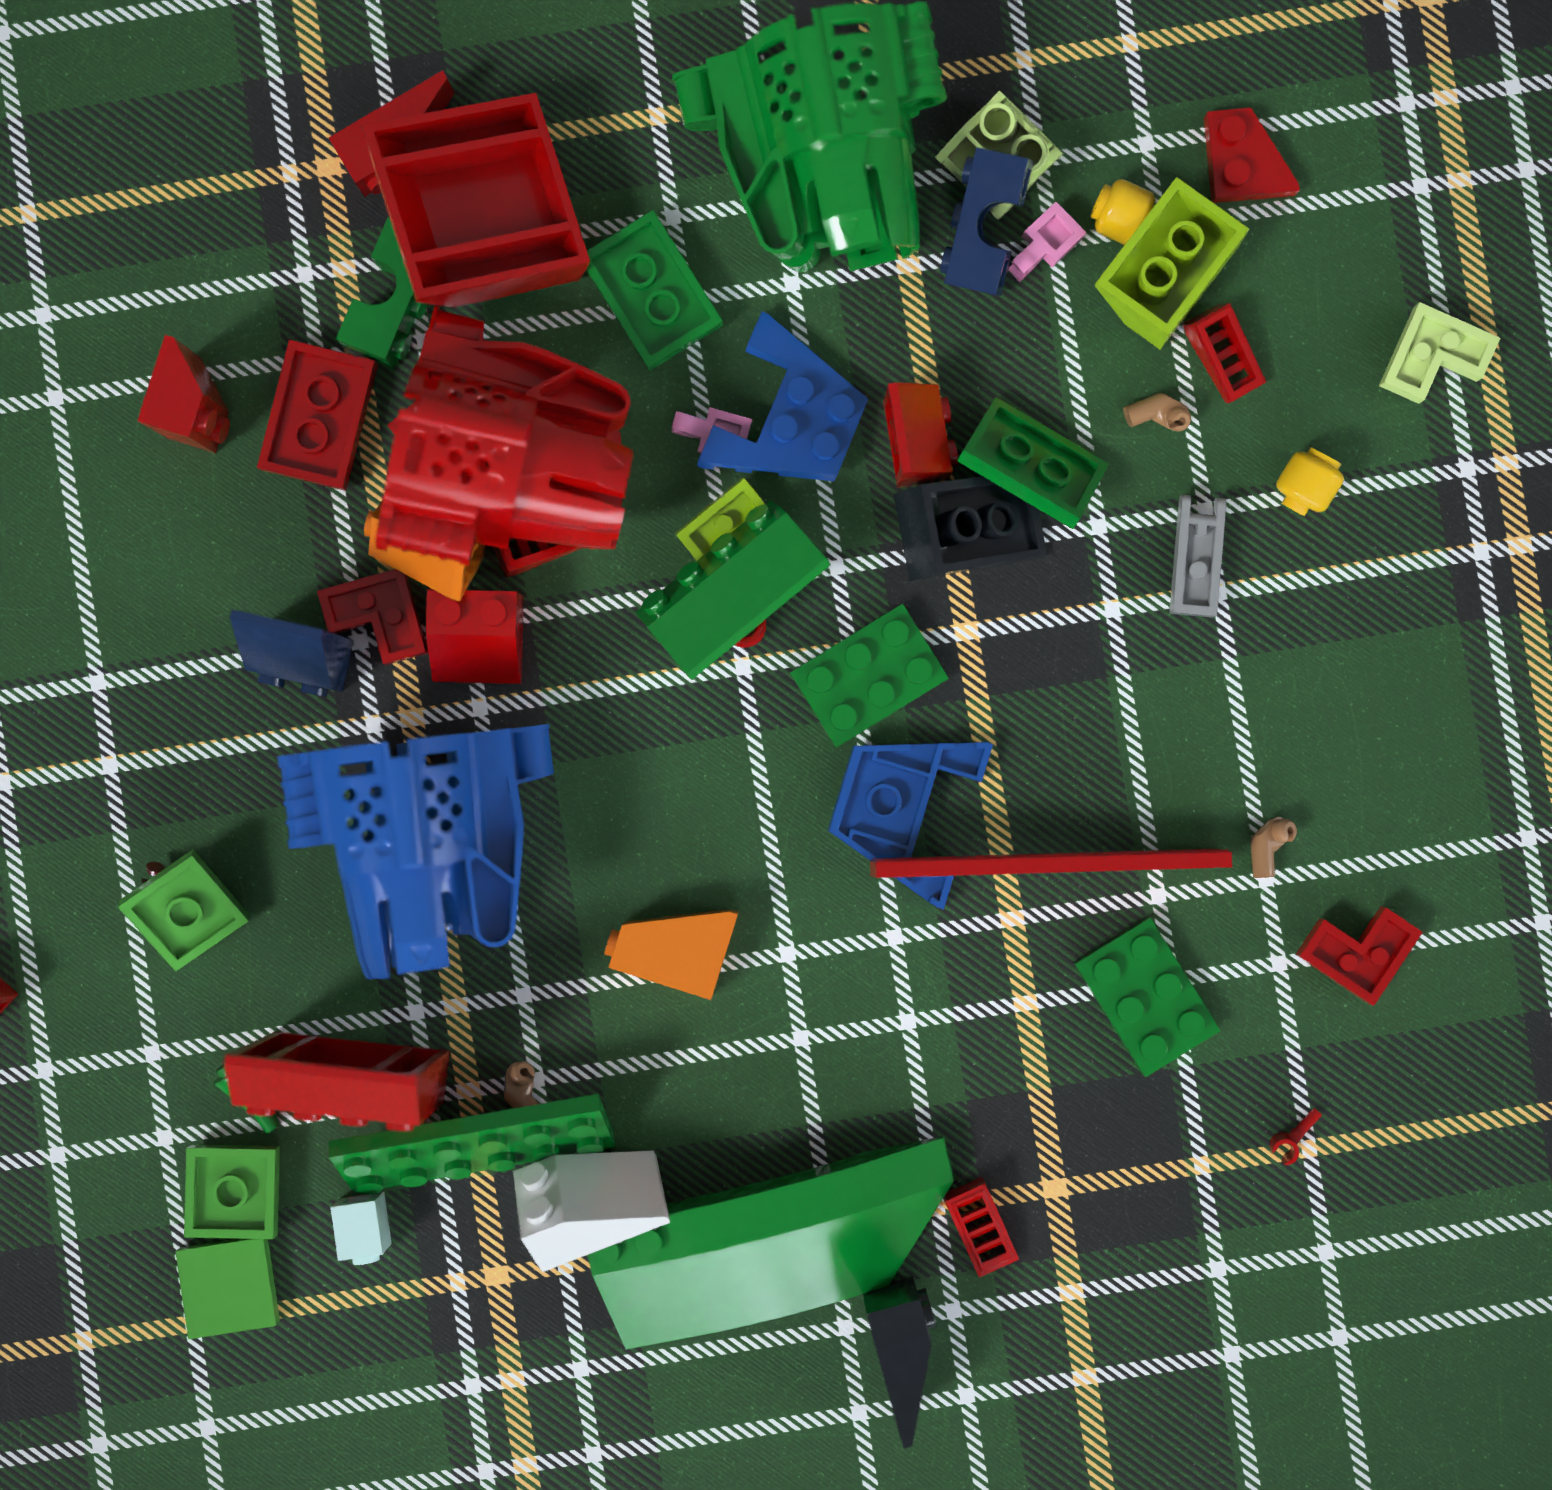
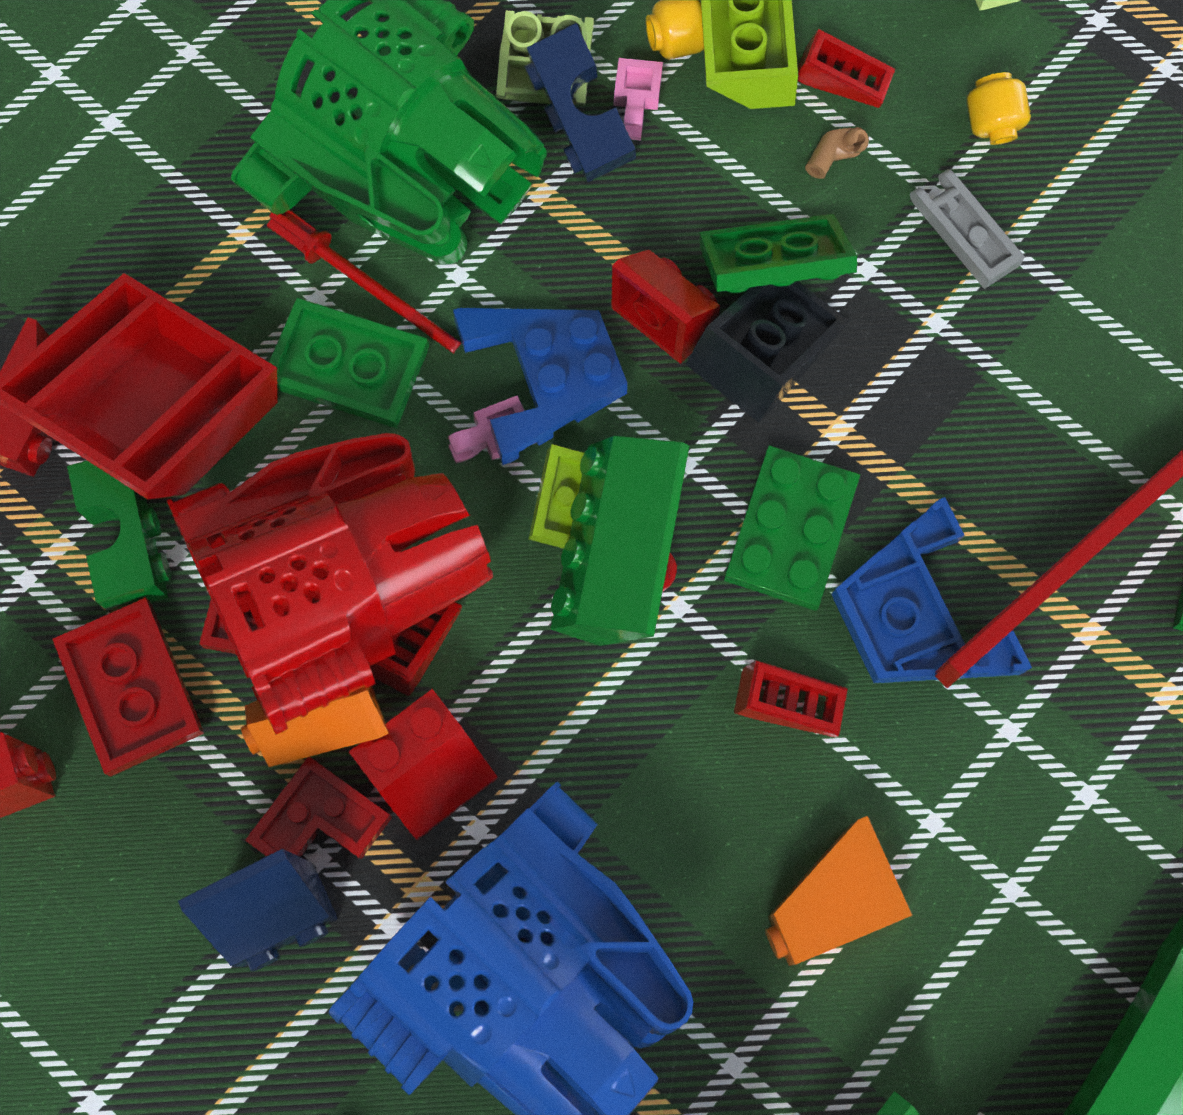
camera: 40 degrees left, 15 degrees down
(702, 173) = (316, 246): none -> red piece
(739, 765) = (749, 690): none -> red slope

